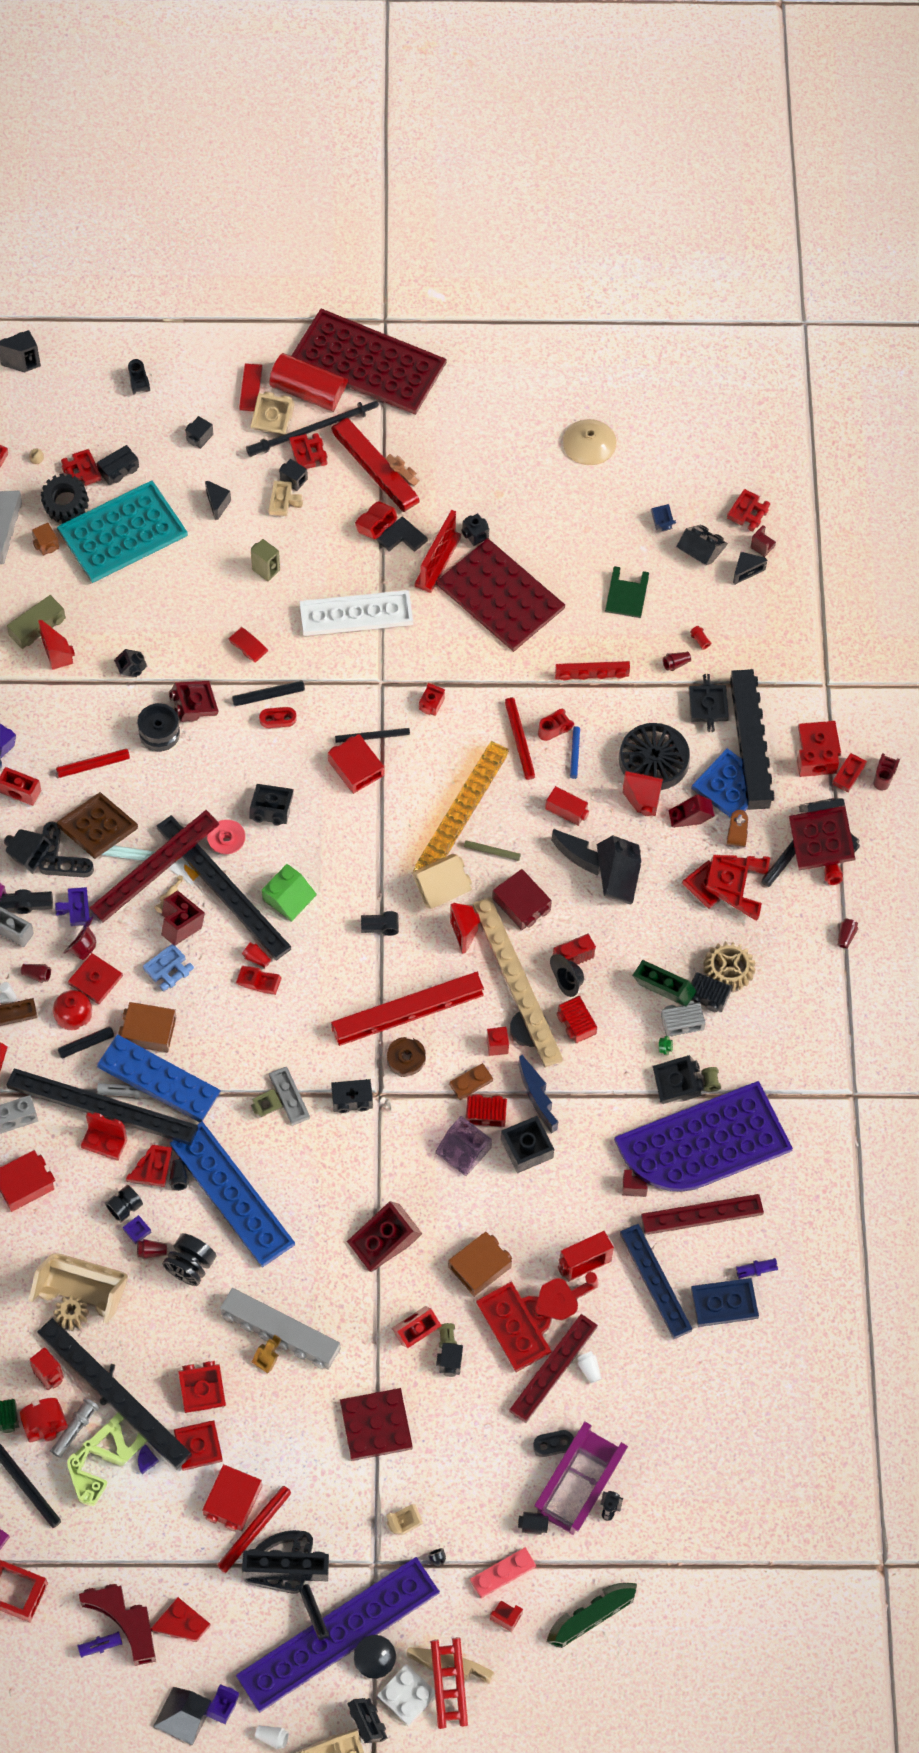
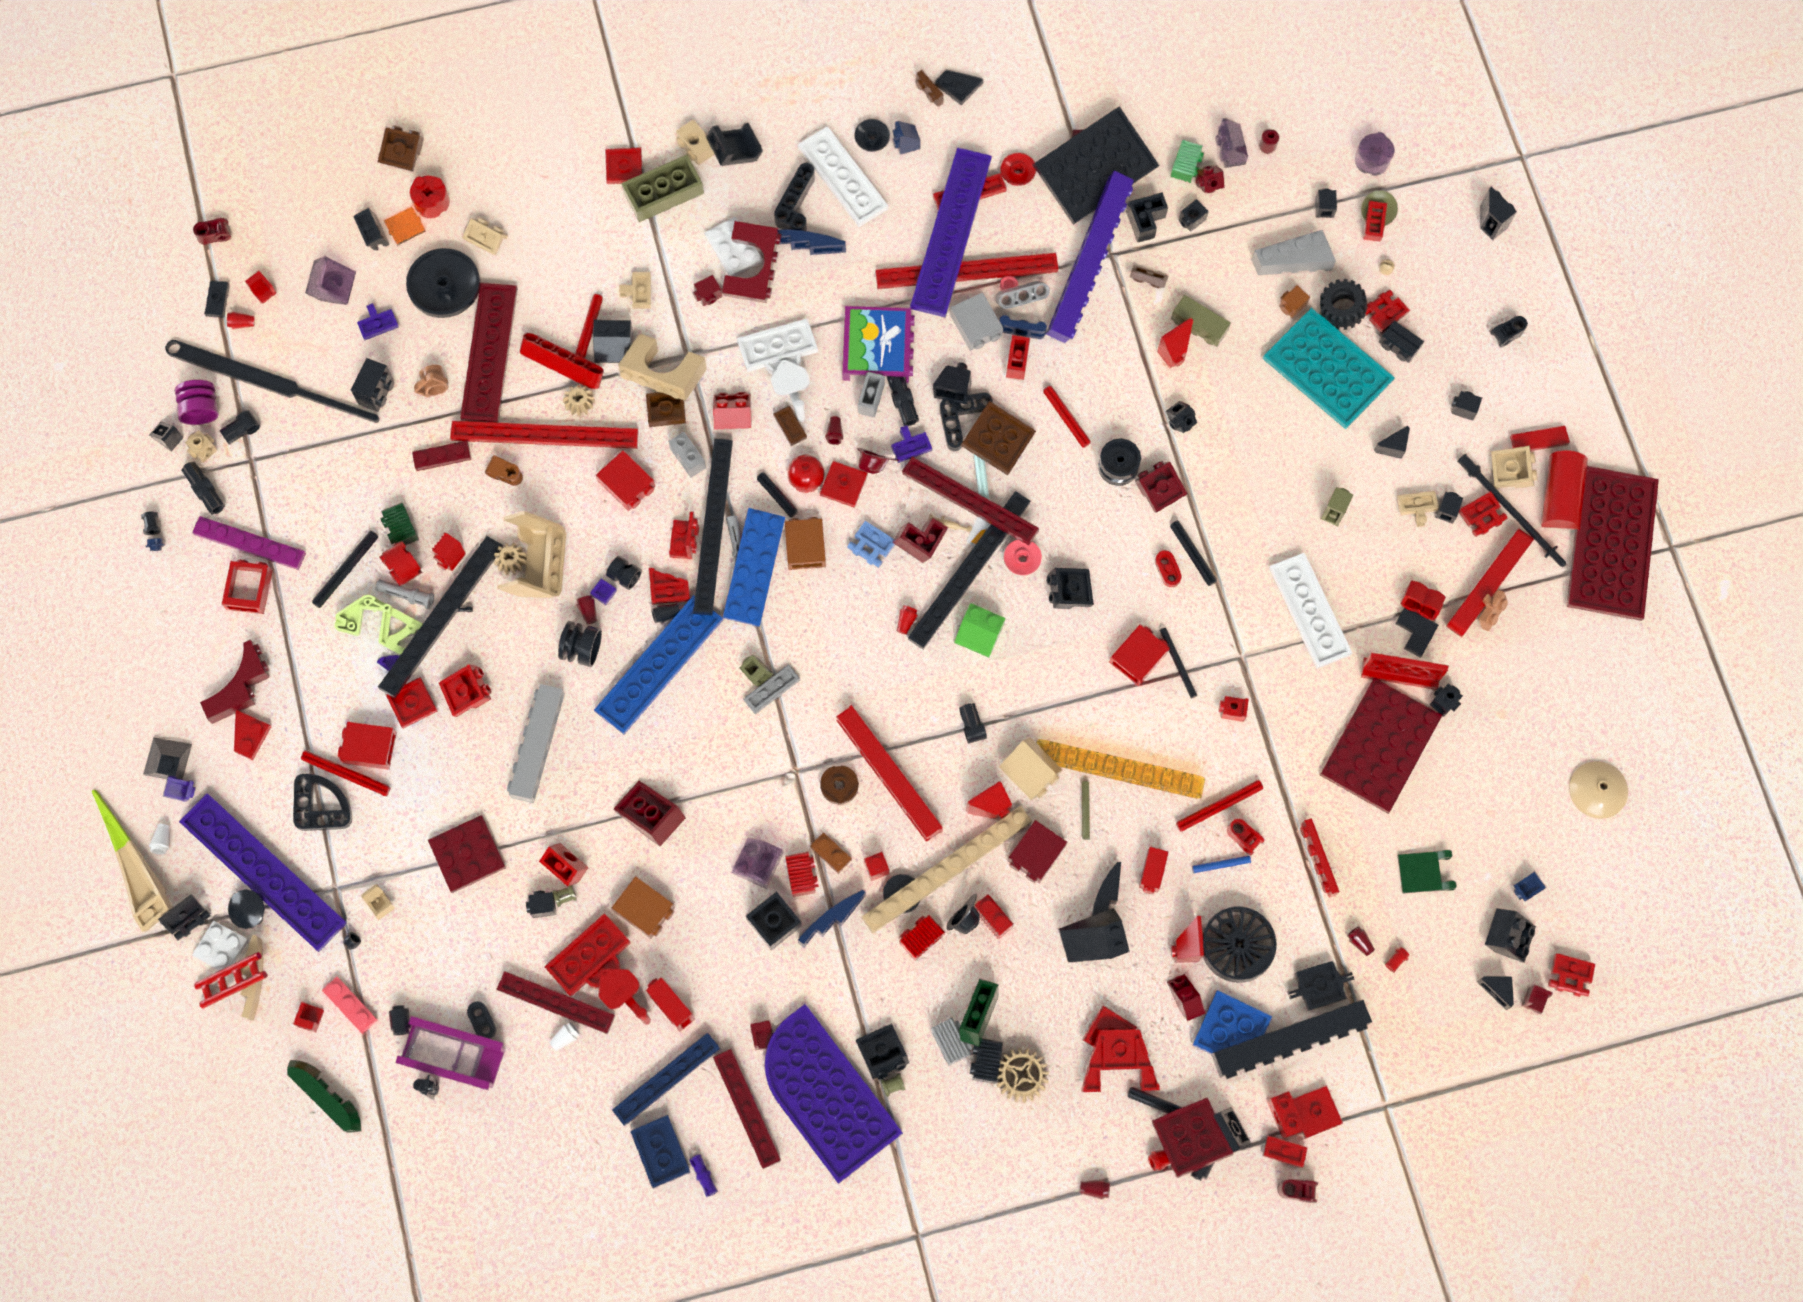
camera: 75 degrees right, 10 degrees up
(85, 1650) = (214, 671): dark purple pin -> none
(248, 644) = (1239, 518): red slope -> none
(257, 980) = (882, 629): red slope -> none
(265, 1356) = (507, 737): pearl gold plate -> none
(285, 1565) = (307, 808): black brick -> none
(313, 1611) = (275, 844): black axle -> none
(359, 1089) = (783, 734): black brick -> none
(665, 1045) = (917, 1031): green plate -> none
(738, 831) = (1179, 1049): dark orange piece -> none

